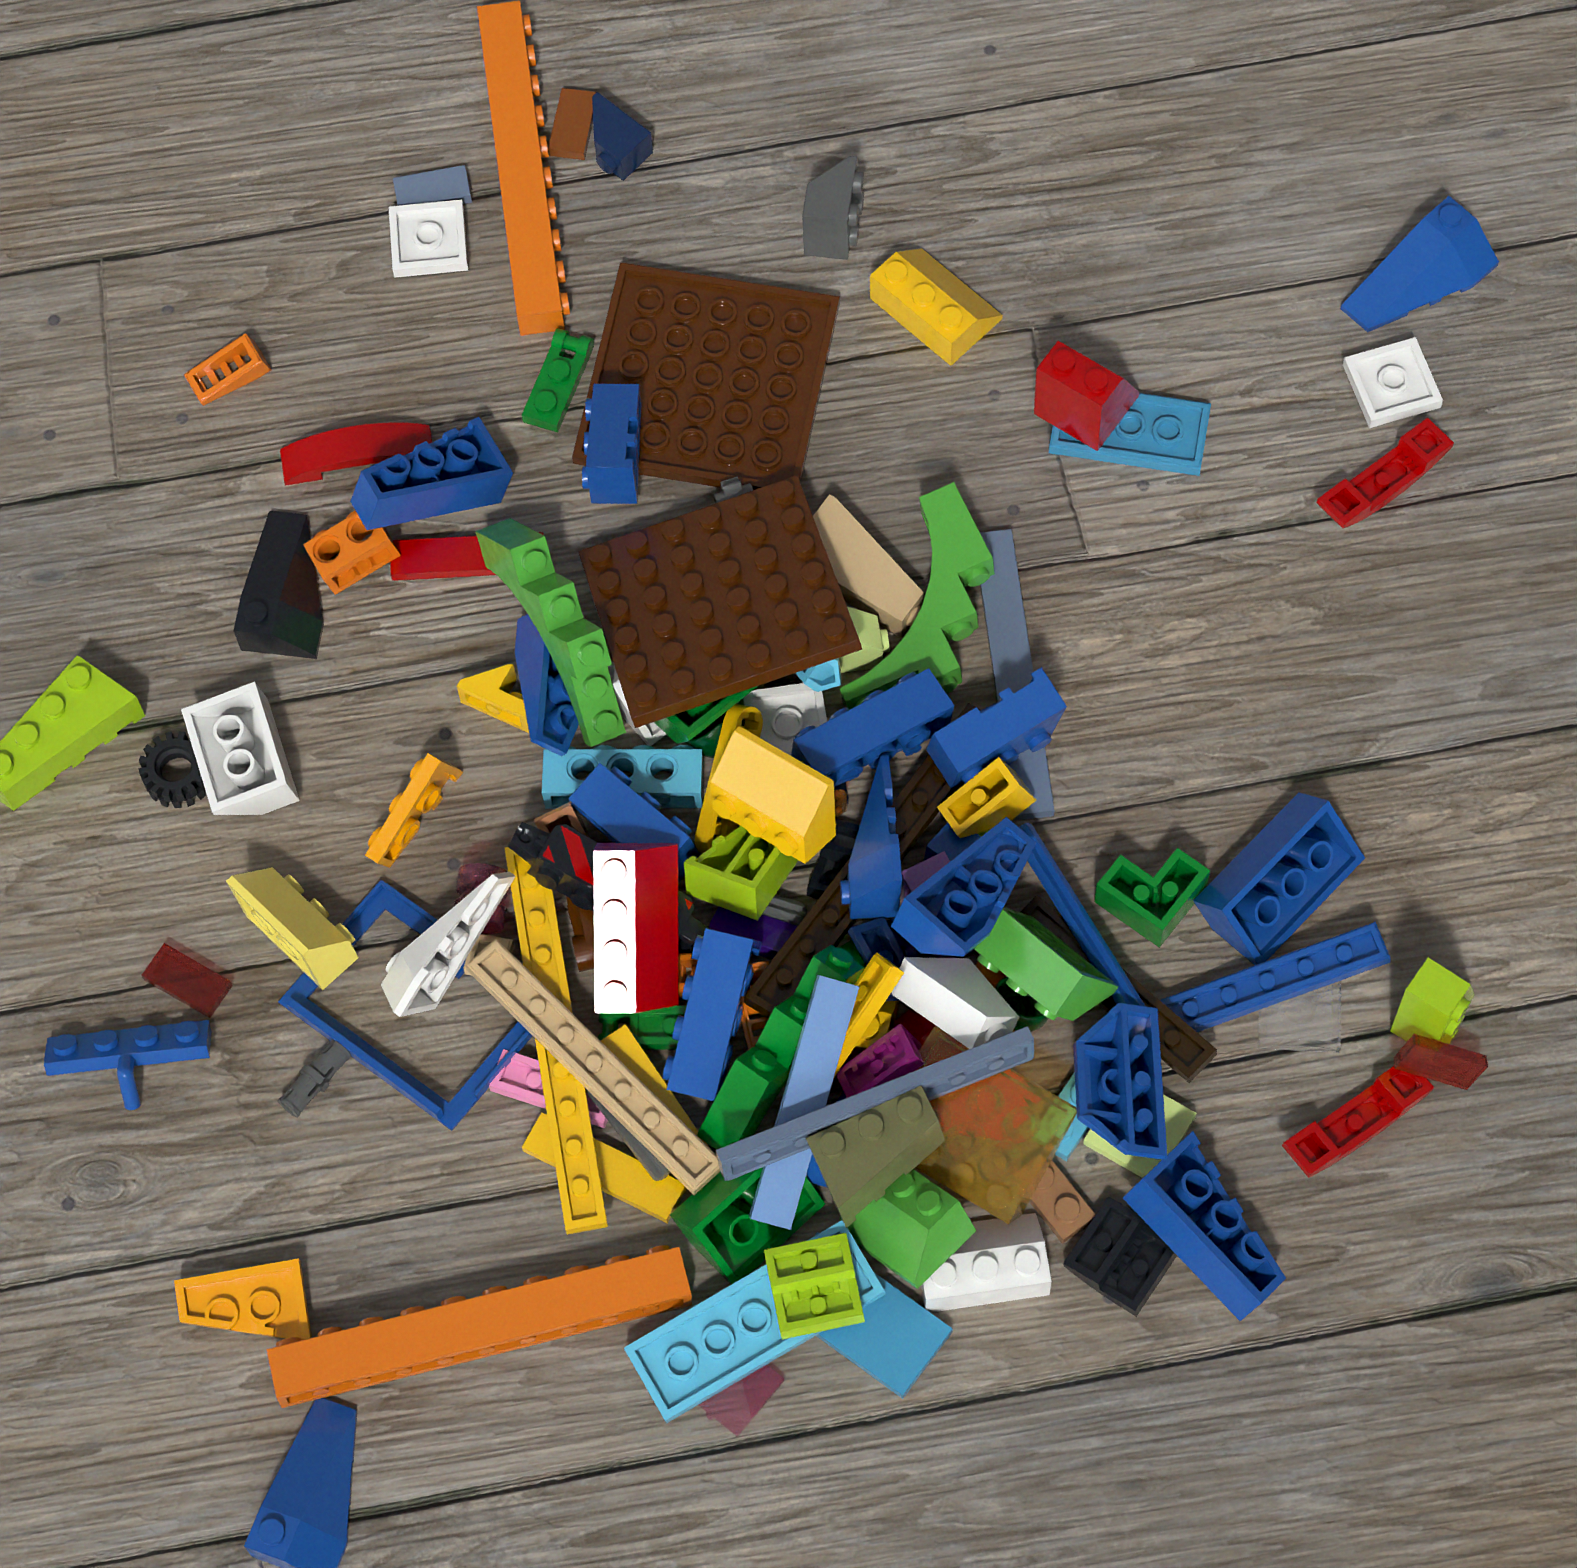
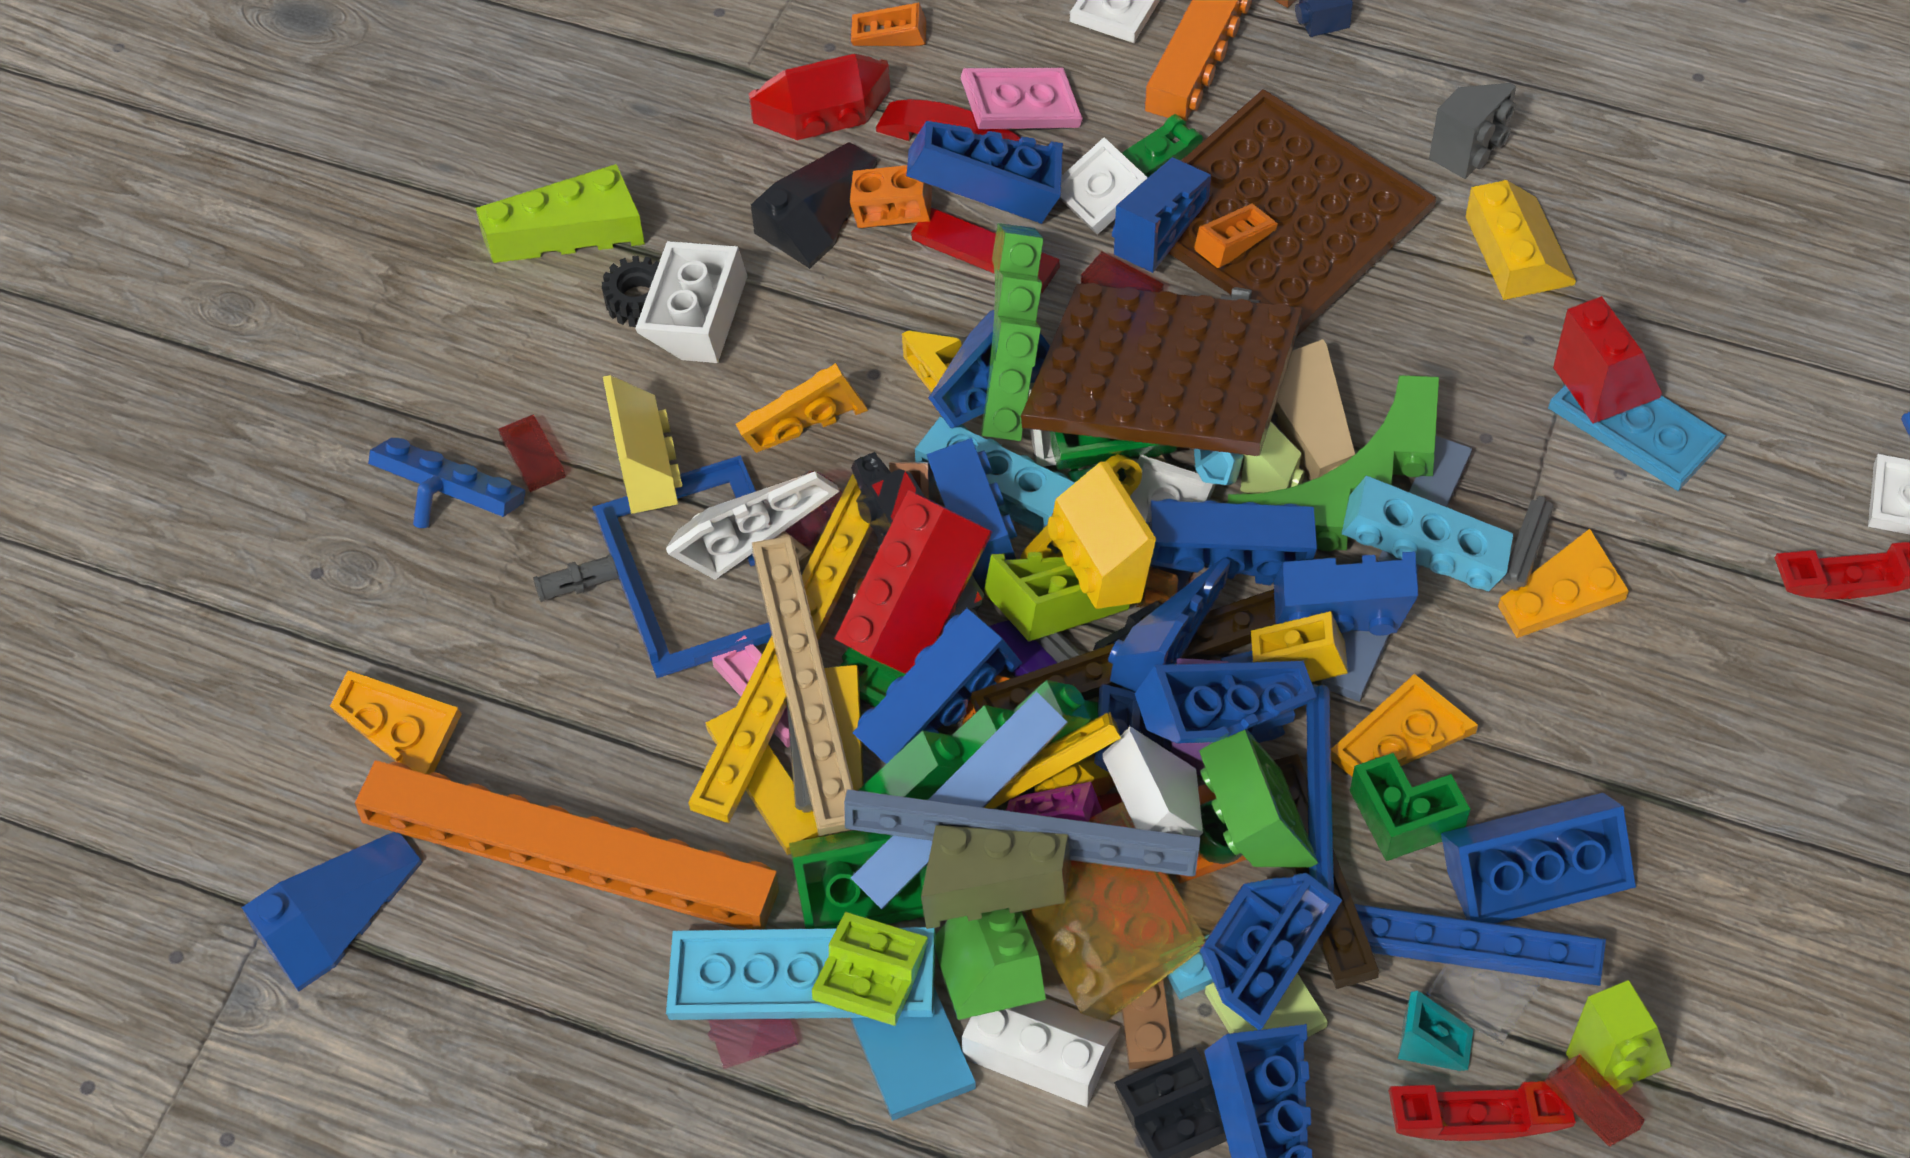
camera: 30 degrees right, 10 degrees down
(219, 484) = (821, 96): none -> red wedge
(404, 384) = (1021, 98): none -> bright pink tile
(538, 438) = (1099, 184): none -> white plate
(603, 523) = (1114, 273): none -> clear red tile
(681, 449) = (1231, 236): none -> orange slope
(1028, 636) = (1440, 536): none -> medium azure brick
(1106, 824) = (1407, 723): none -> light orange wing
(1109, 595) = (1528, 543): none -> dark grey axle
(1160, 619) = (1564, 588): none -> light orange wing
(1285, 1077) = (1434, 1035): none -> teal slope

